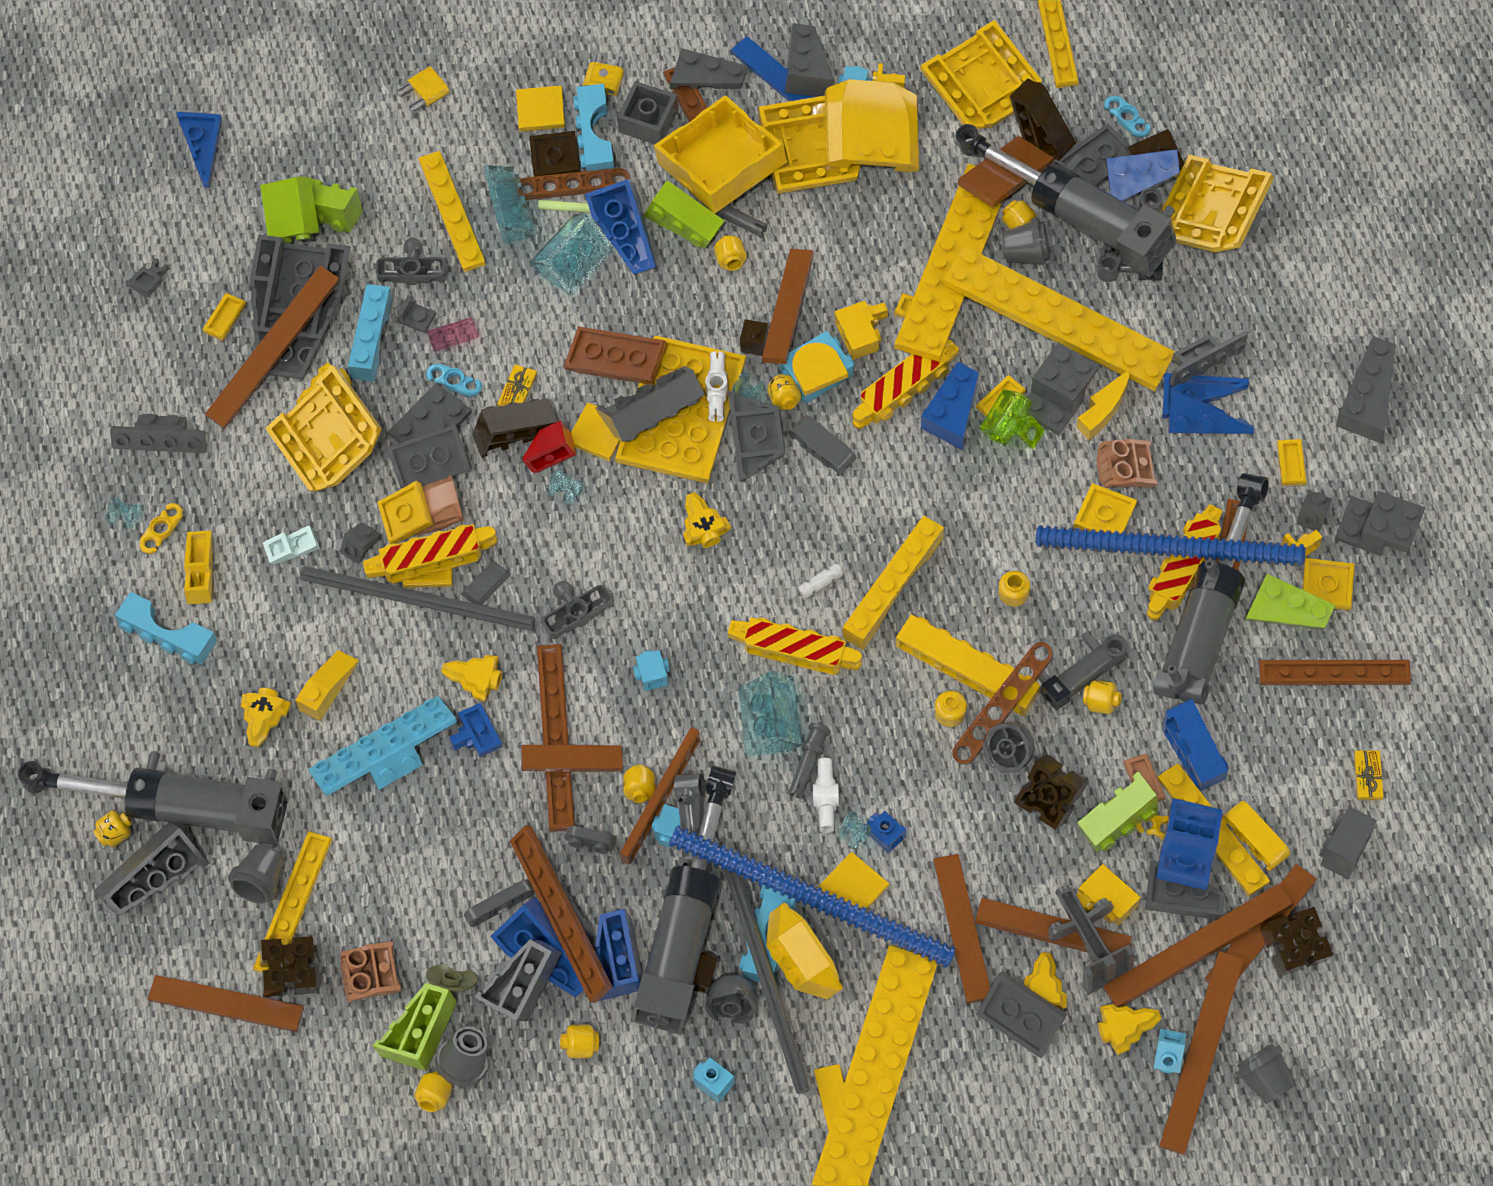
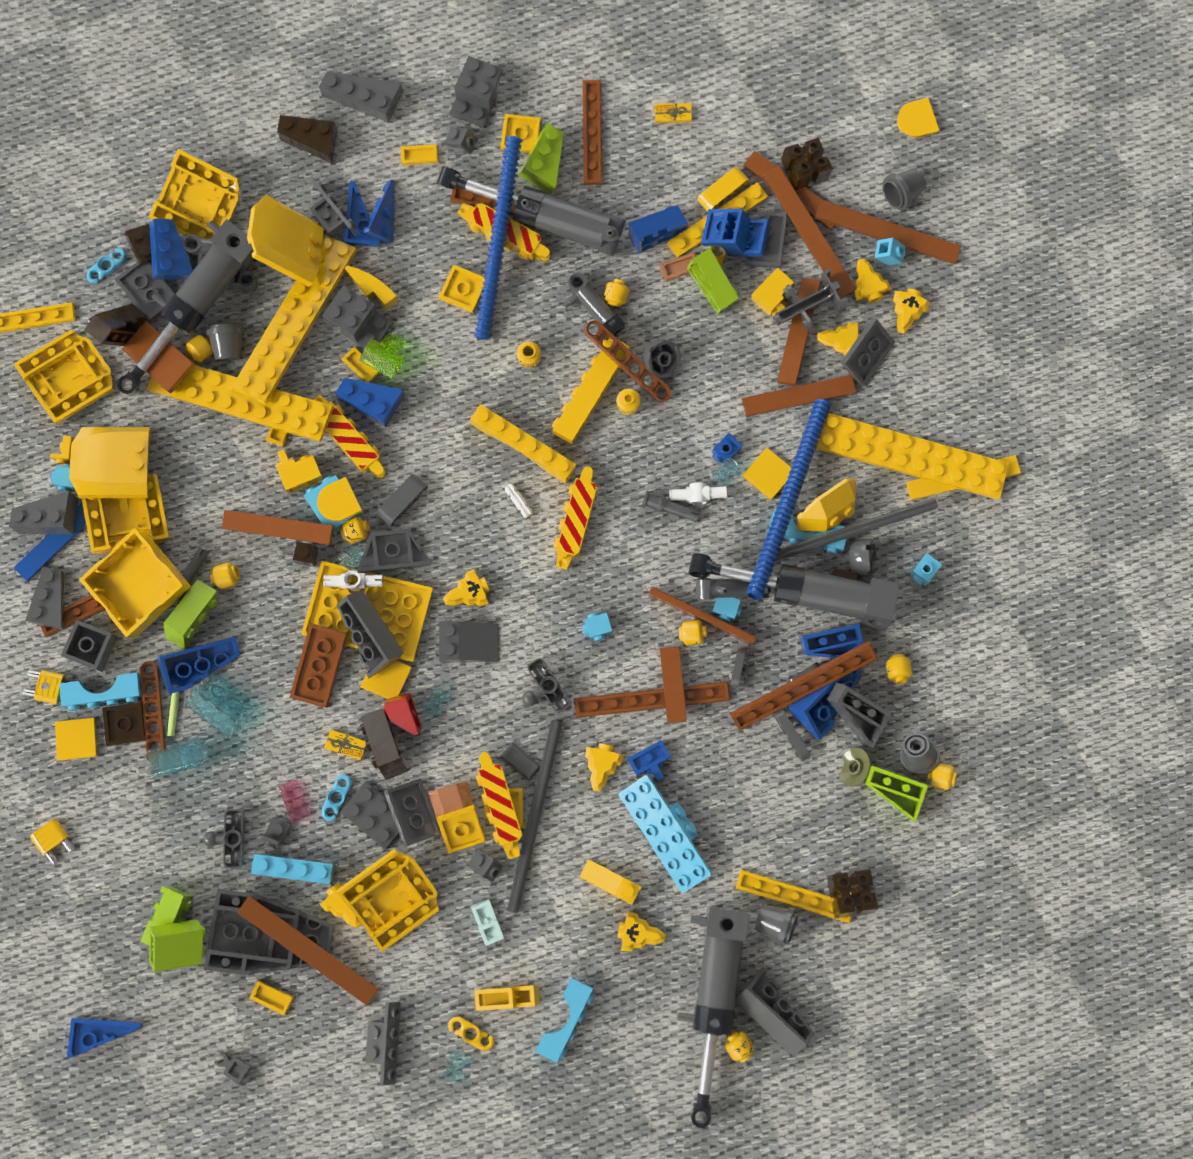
camera: 95 degrees left, 15 degrees up
(226, 1003) = (877, 943): dark orange tile -> none
(369, 966) = (851, 831): nougat slope -> none
(451, 211) = (174, 809): yellow plate -> none
(637, 520) = (468, 642): none -> dark grey slope
(769, 715) = (634, 536): clear light blue slope -> none
(1051, 792) = (698, 327): dark brown brick -> none
(1089, 1077) = (908, 307): none -> yellow rock
(1125, 464) = (422, 273): nougat slope -> none
(1155, 295) = (285, 240): none -> yellow wedge
(1308, 331) = (309, 135): none -> dark brown wedge
(1311, 541) = (492, 148): yellow bracket -> none
(1347, 842) = (732, 125): dark grey brick -> none
(1377, 1103) = (917, 119): none -> yellow tile

